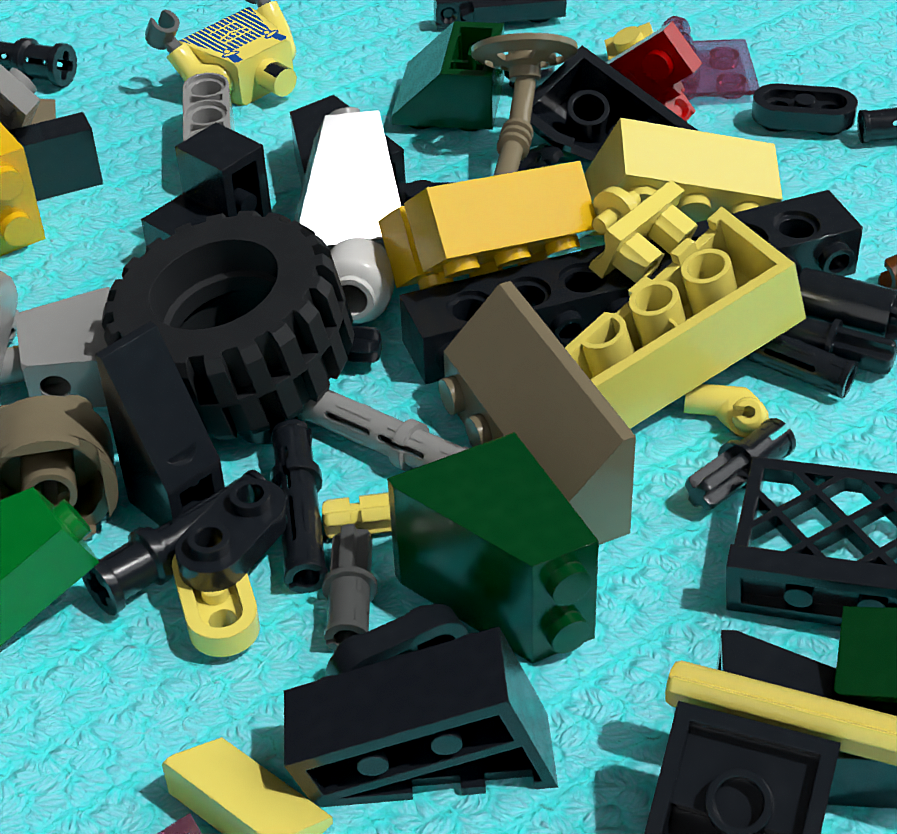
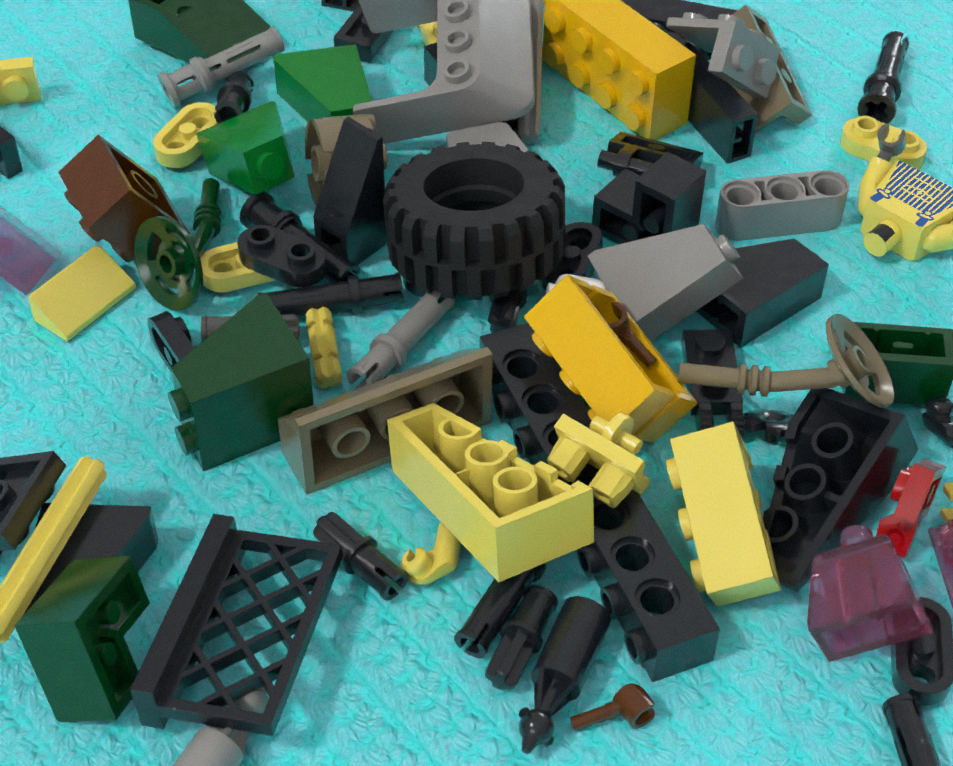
camera: 85 degrees right, 5 degrees up
(98, 709) = (115, 196): none -> reddish brown brick
(107, 217) = (640, 153): none -> black plate
(112, 73) = (861, 140): none -> light yellow plate
(215, 649) = (180, 258): none -> dark green dish
(418, 721) = (105, 367): black wedge -> none
(766, 105) = (863, 597): none -> clear pink torso

